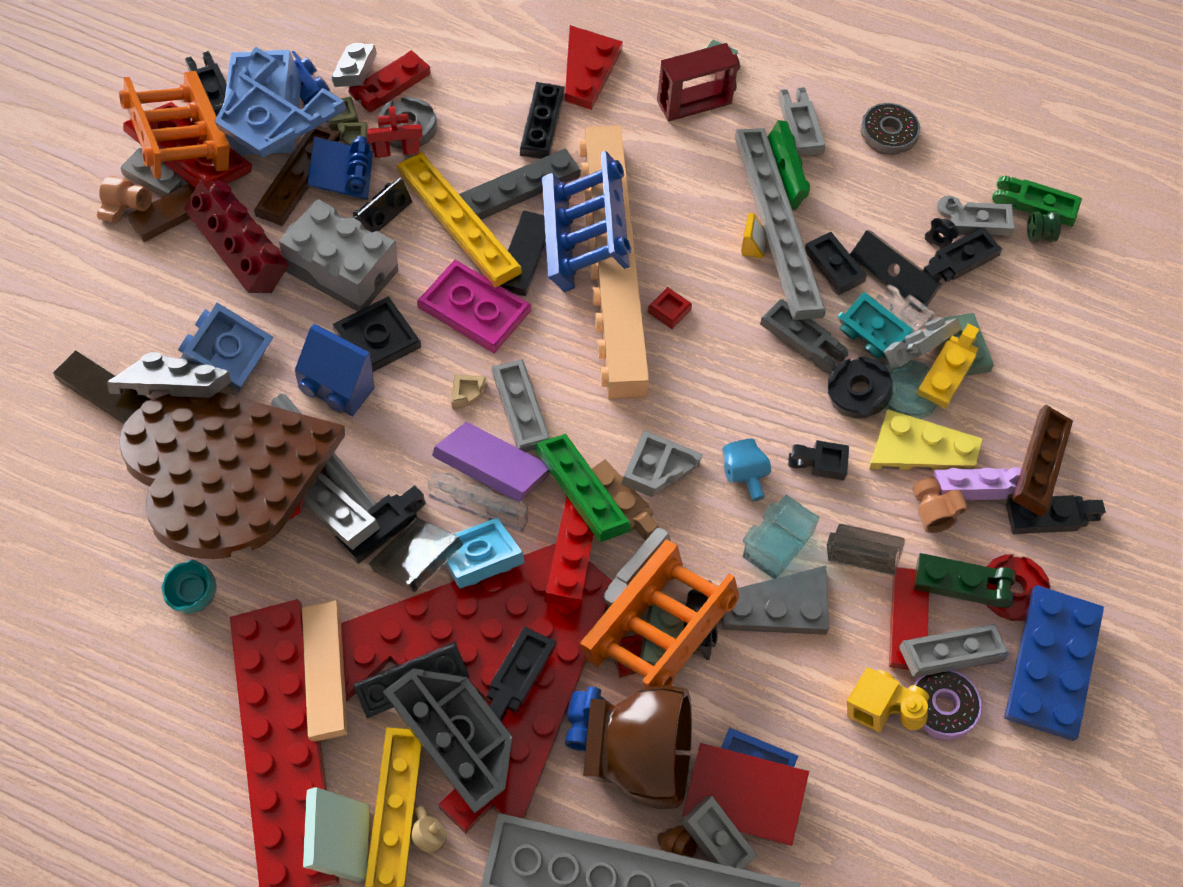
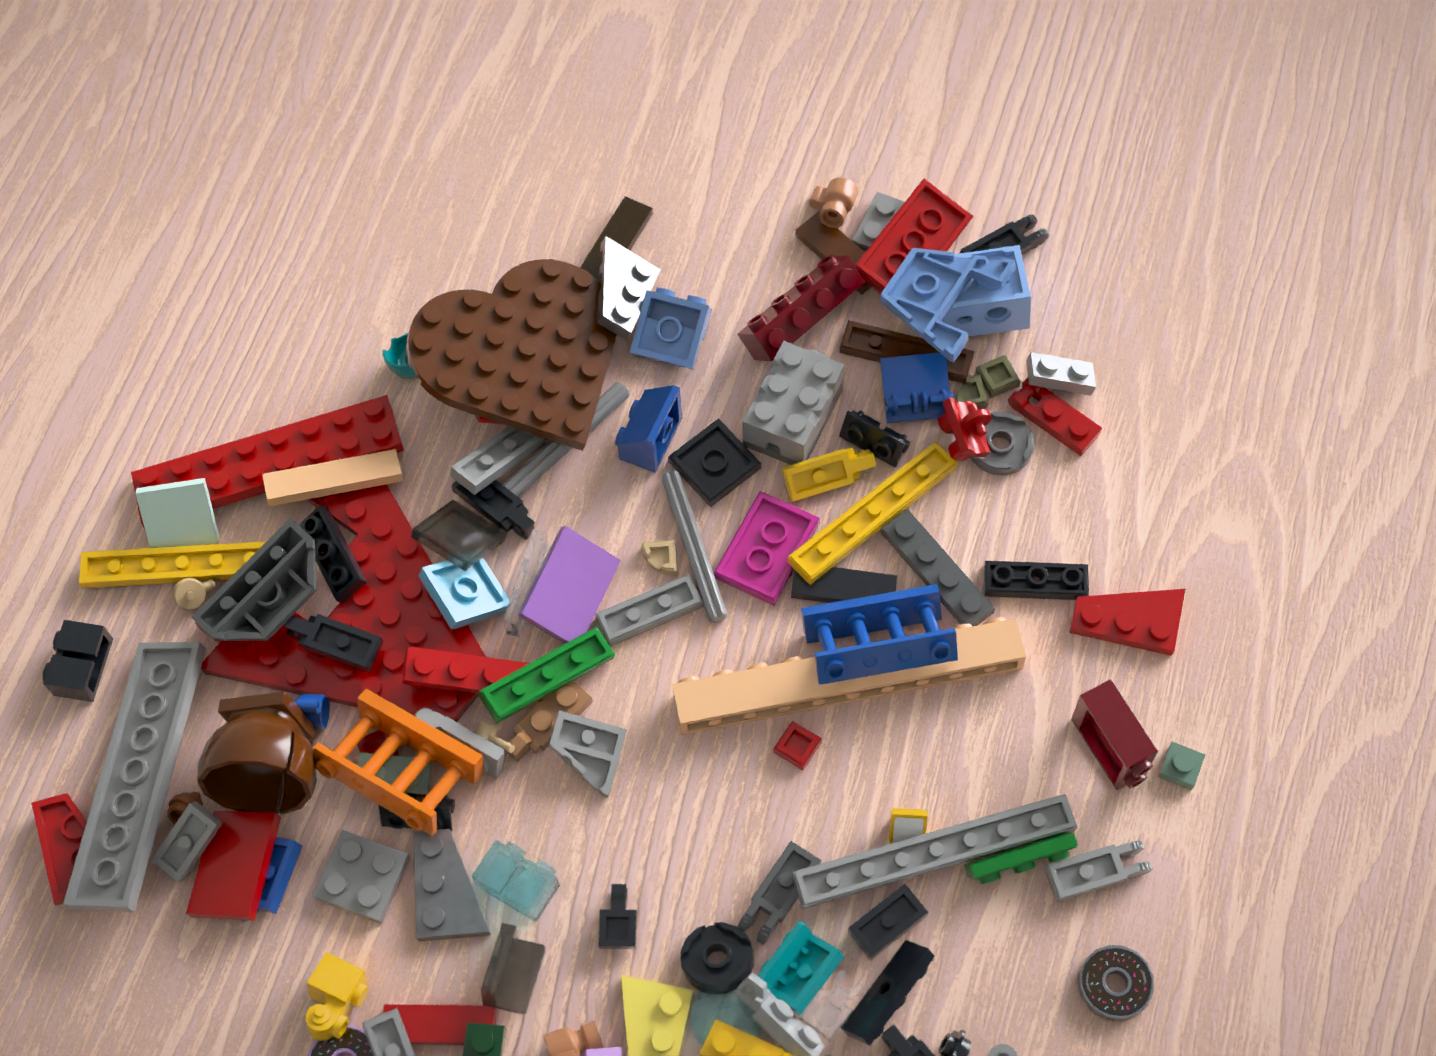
camera: 90 degrees right, 5 degrees up
(197, 109) = (951, 238): orange fence -> none
(310, 83) = (1043, 329): blue hinge -> none
(411, 246) = (825, 472): none -> yellow hinge
(460, 361) = (694, 547): none -> light grey axle
(628, 550) = (489, 732): none -> tan hand
(746, 464) = (600, 839): dark azure piece -> none
(761, 678) = (361, 876): none -> light grey plate

